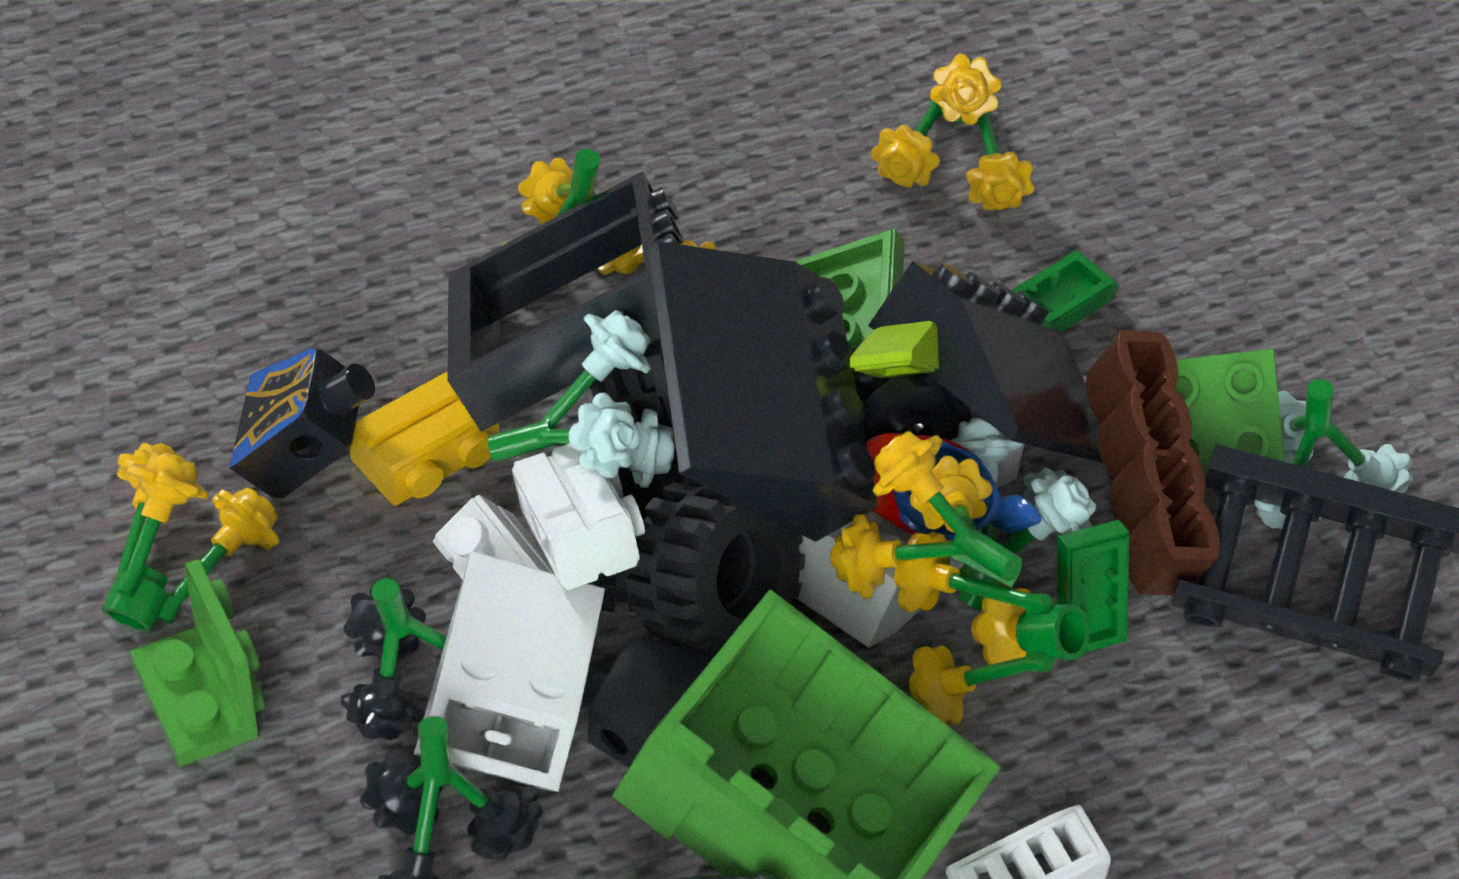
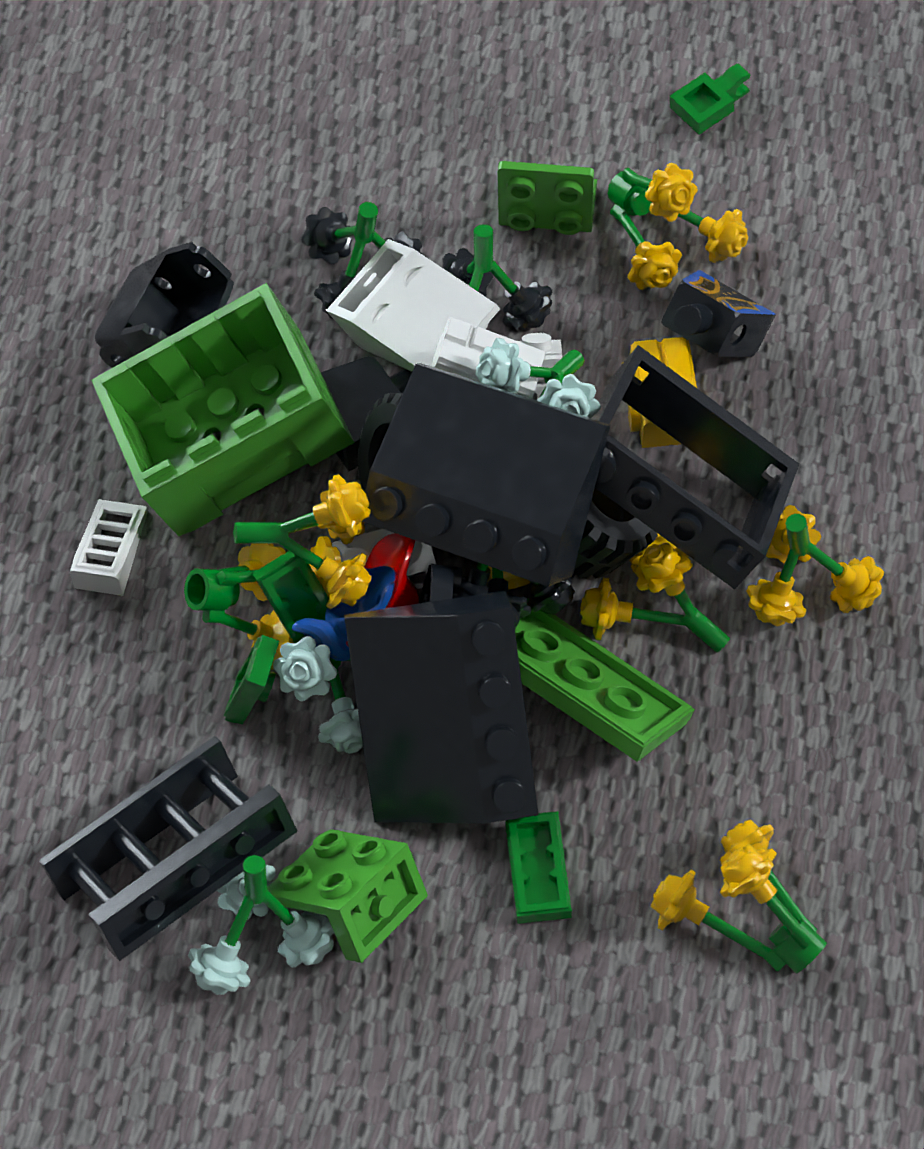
camera: 130 degrees right, 10 degrees up
(898, 350) = (455, 574): lime slope -> none
(1153, 467) = (322, 784): copper brick -> none

